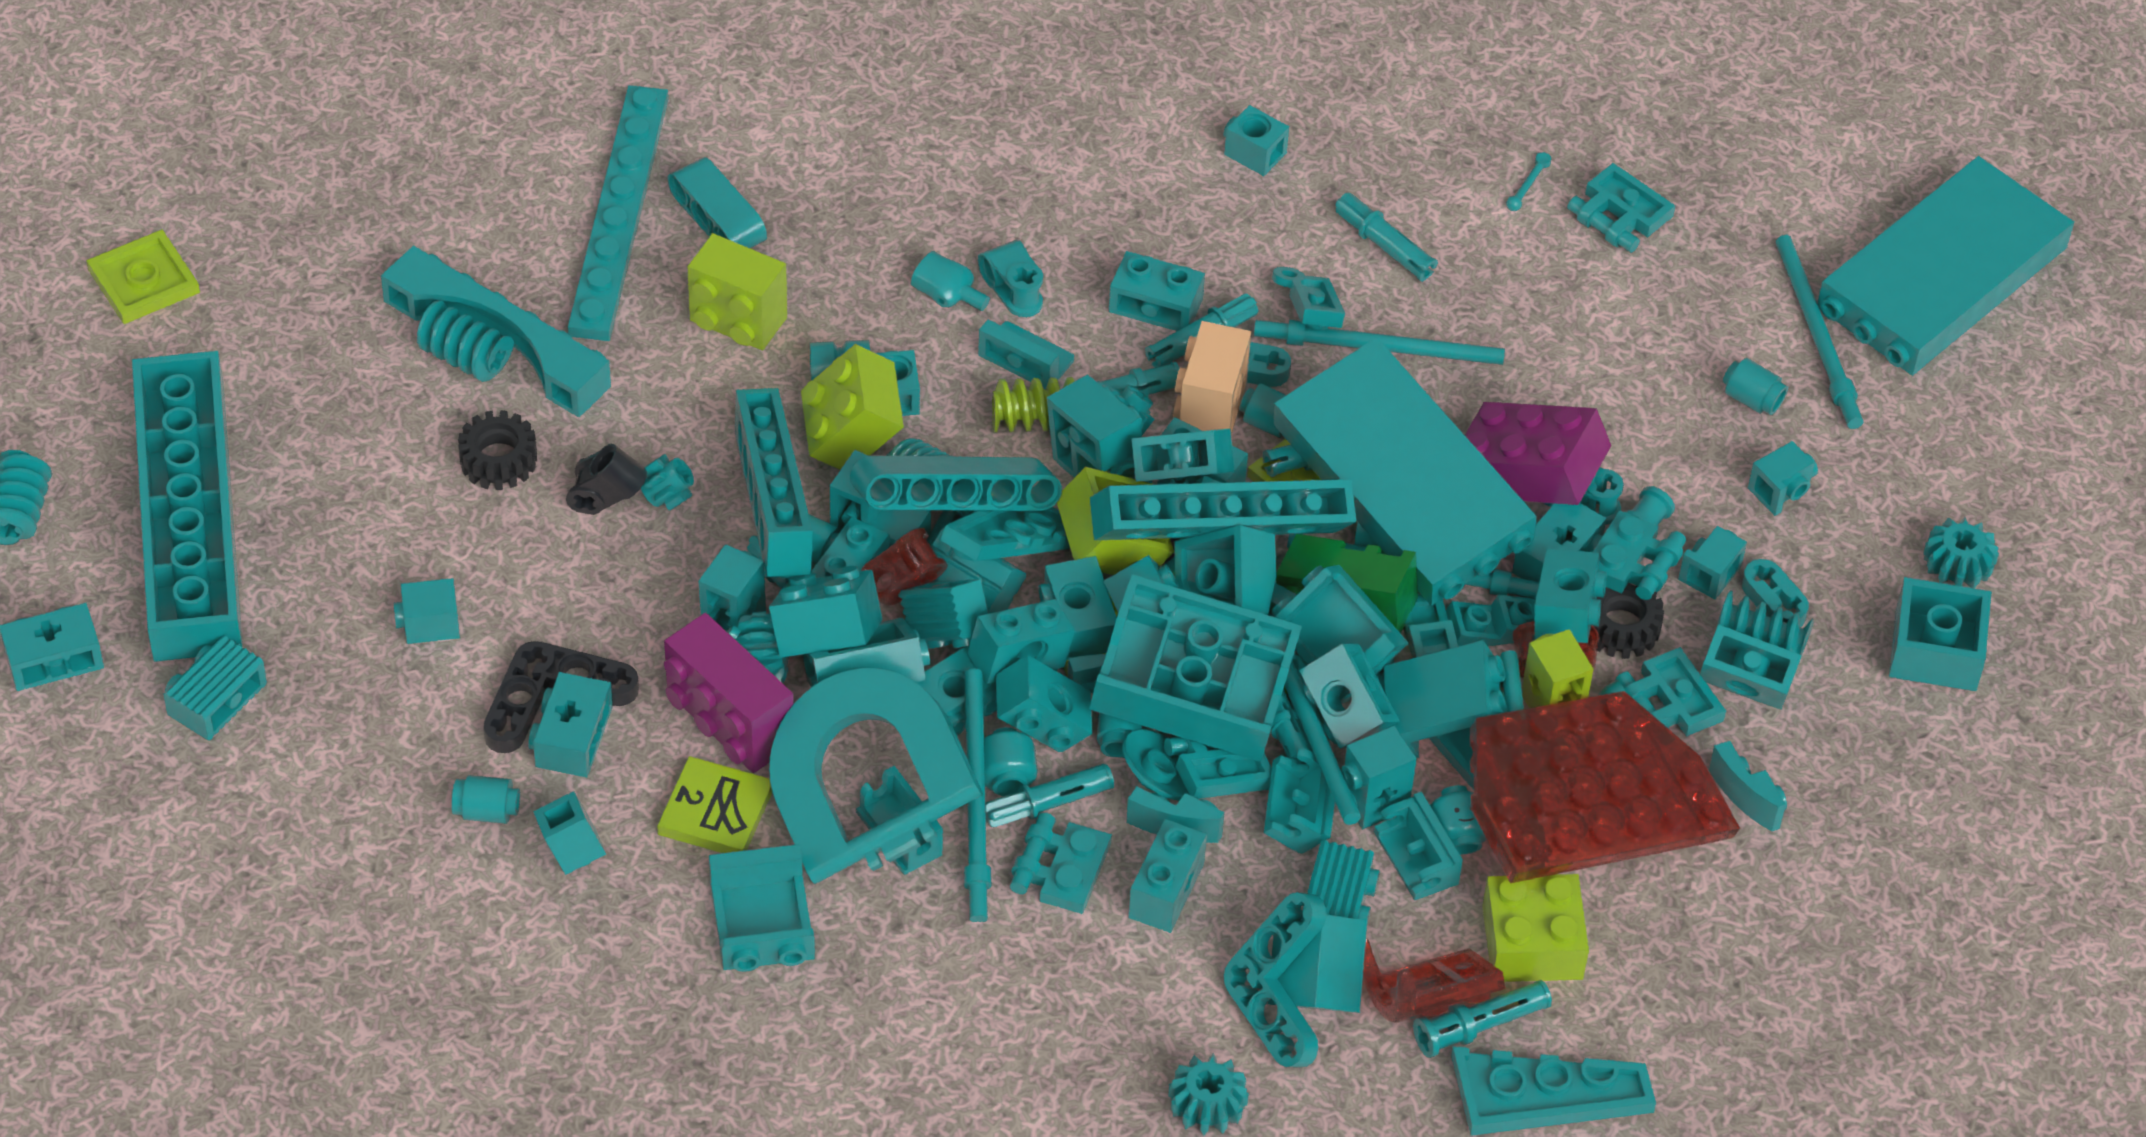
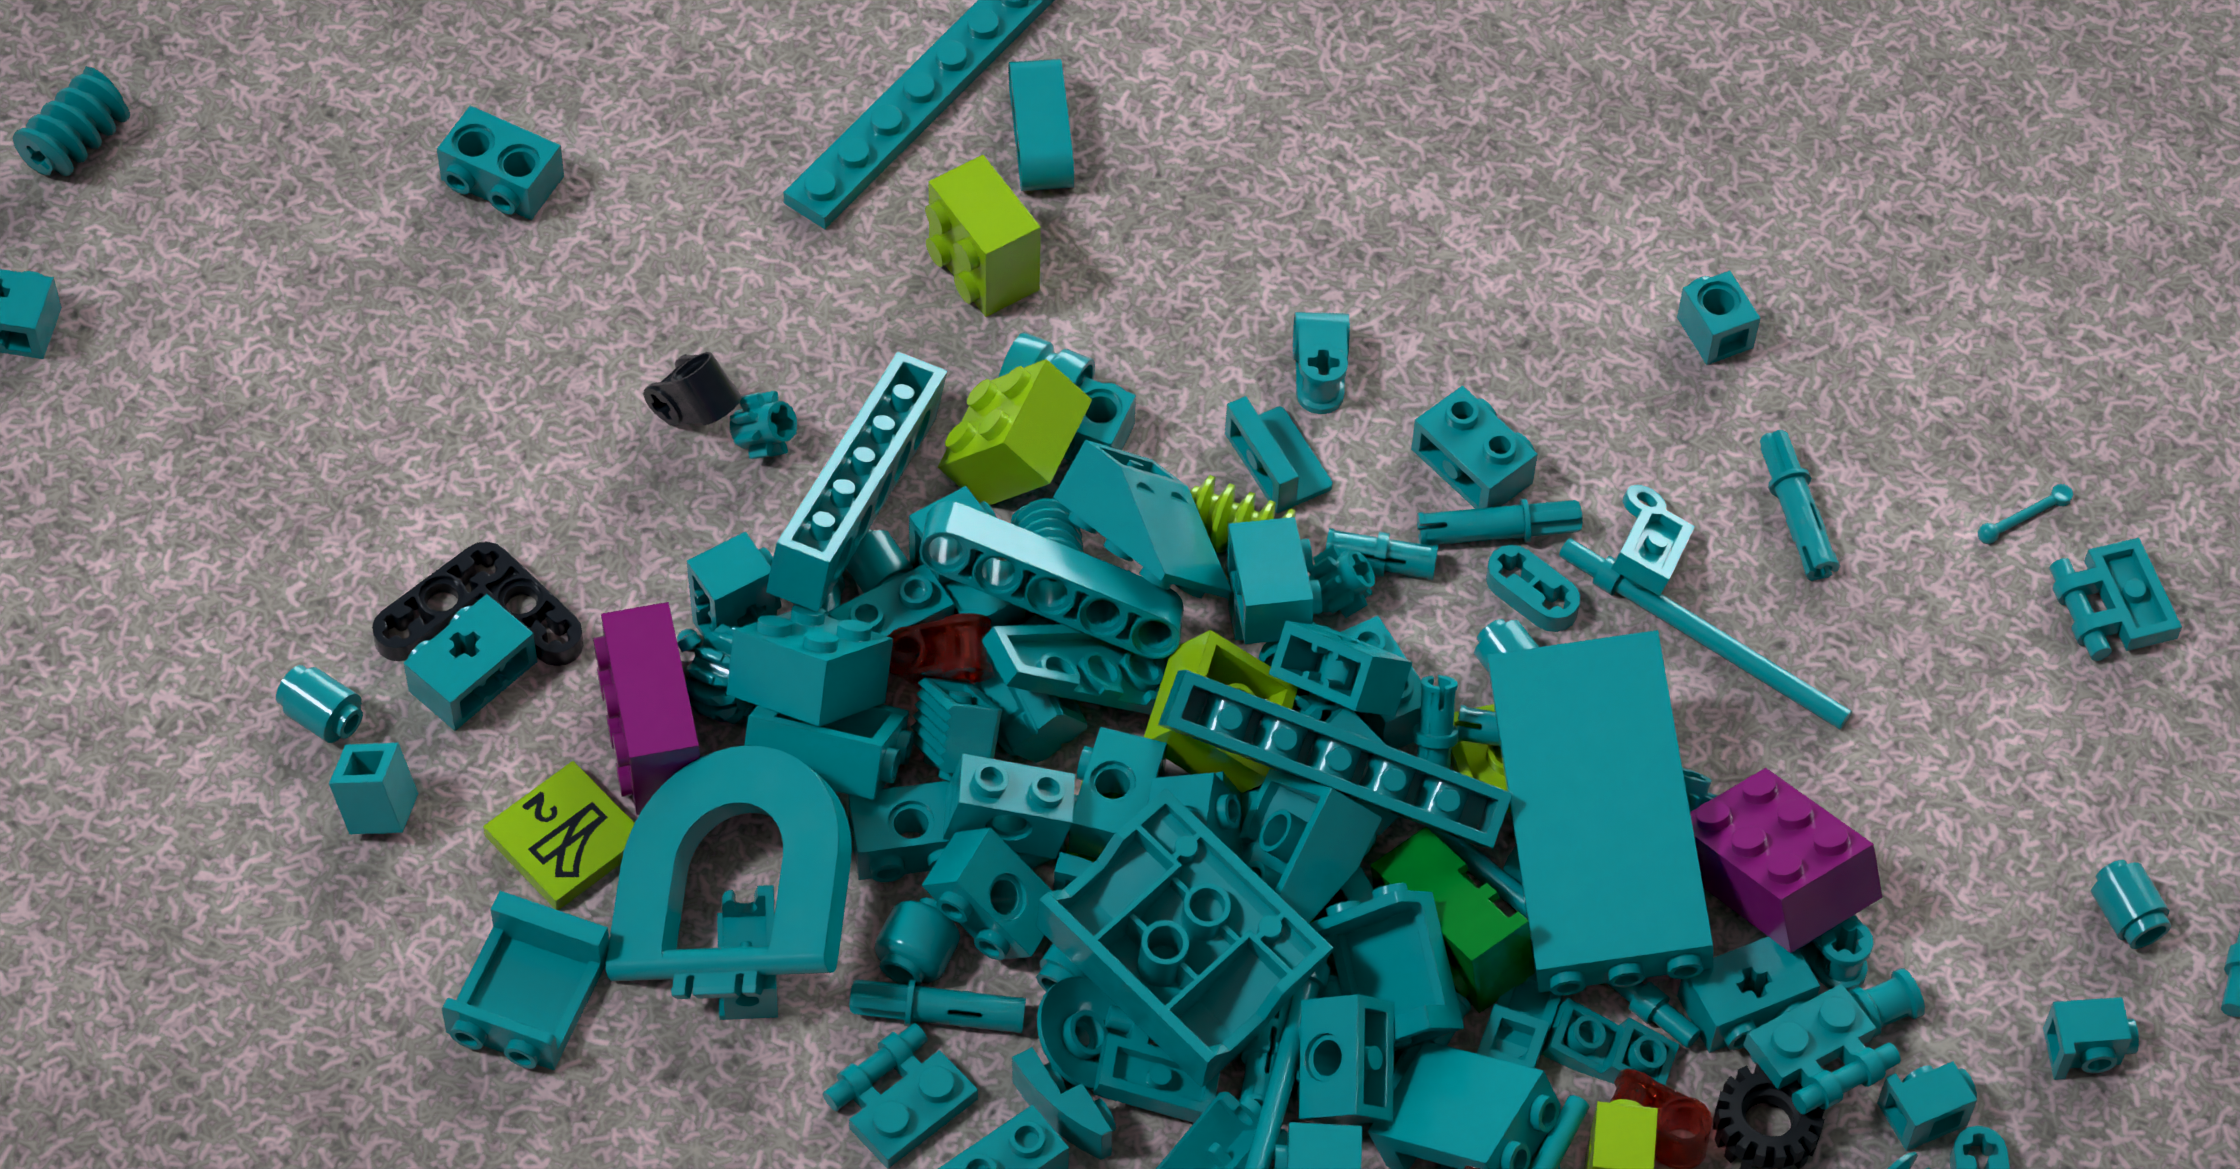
camera: 30 degrees right, 5 degrees up
(185, 504) = (233, 216): teal brick -> none
(214, 687) = (128, 436): teal brick -> none
(352, 391) = (500, 163): none -> teal brick
(428, 611) = (408, 455): teal brick -> none
(462, 342) = (654, 158): teal piece -> none
(497, 468) = (610, 326): black tyre -> none
(568, 370) = (663, 86): teal arch -> none
(947, 282) = (1243, 329): teal piece -> none
(977, 872) = (794, 1060): teal bar -> none
(980, 422) = (1143, 517): none -> teal slope
(1213, 378) = (1455, 594): light nougat brick -> none
(1257, 458) = (1435, 730): none -> teal pin
(1569, 593) = (1697, 1062): teal brick -> none

